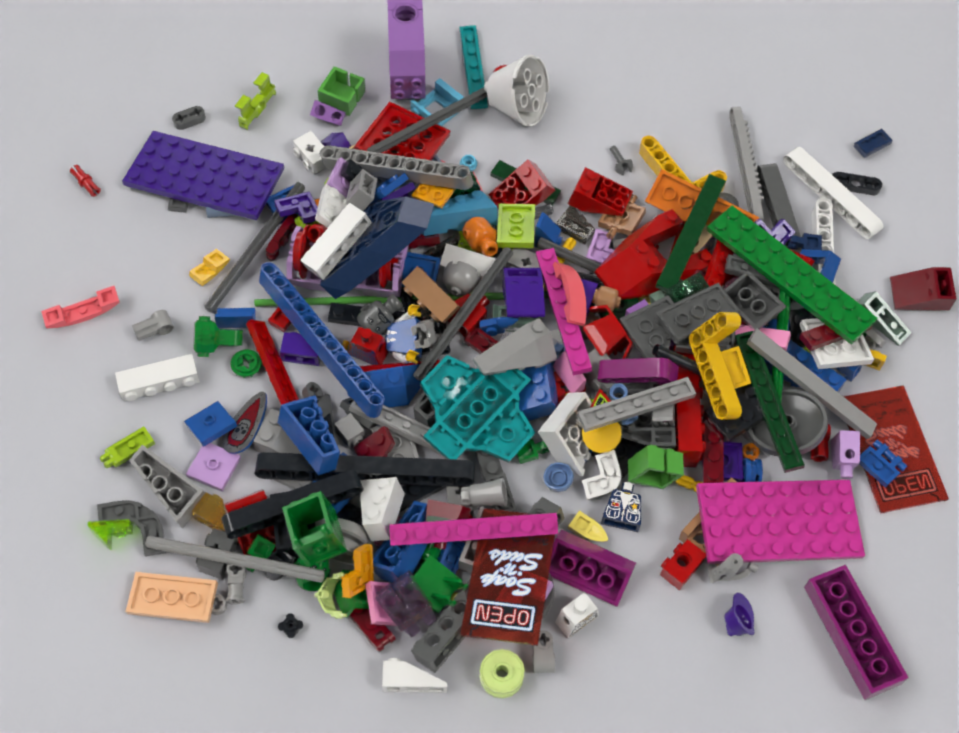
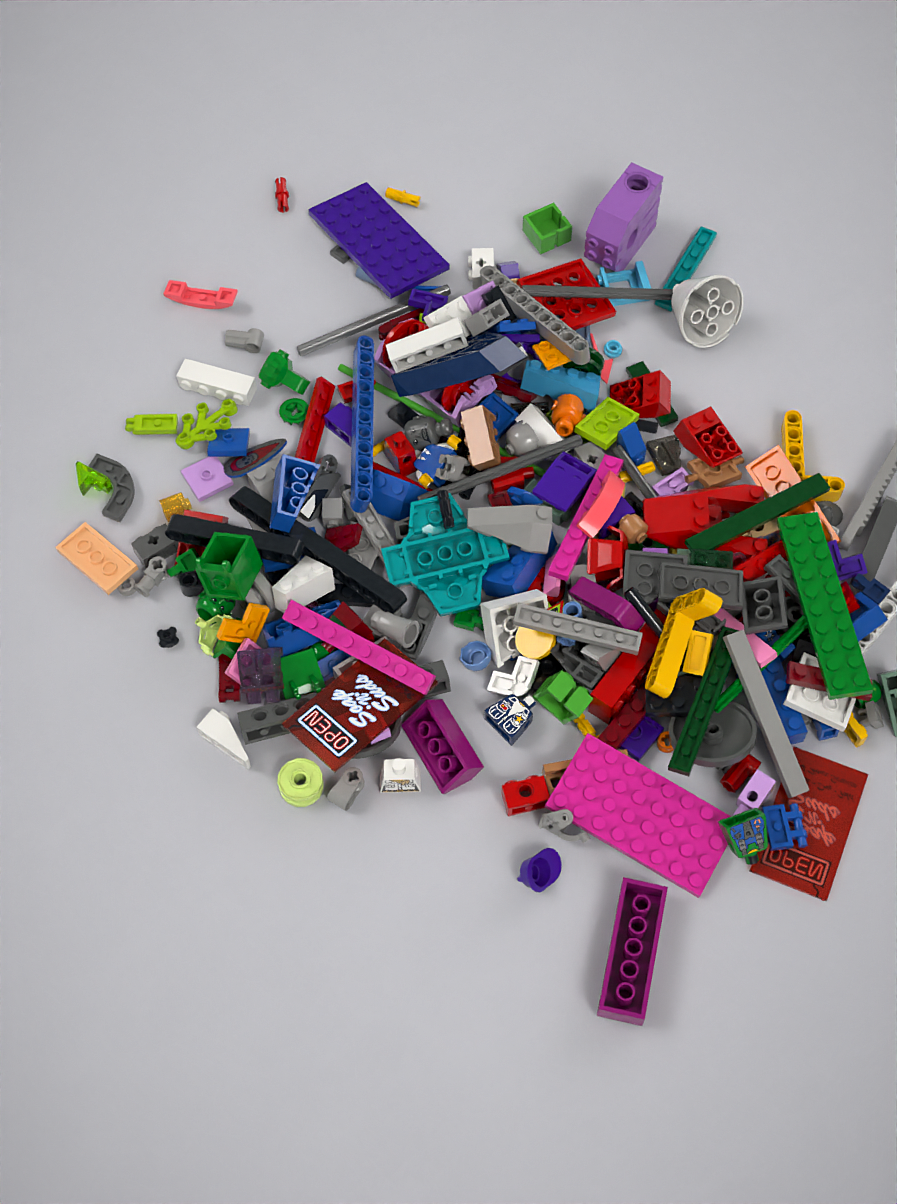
camera: 40 degrees right, 0 degrees up
(169, 485) = (158, 469): light grey wedge -> none
(170, 443) = (188, 437): none -> lime plant
(188, 117) = (405, 184): dark grey beam -> none
(195, 127) = (402, 196): none -> yellow axle
(211, 266) = (324, 319): yellow slope -> none
(234, 317) = (313, 368): blue panel -> none
(235, 558) = (162, 558): light grey axle -> none
(253, 108) = (457, 206): lime piece -> none
(327, 113) = (521, 241): medium lavender leg -> none
(454, 370) = (445, 508): none -> black axle
(587, 528) = (467, 713): light yellow plate -> none
(621, 161) = (756, 423): dark grey bar -> none
(752, 470) = (652, 756): blue wheel -> none
(866, 485) = (746, 834): none -> torso

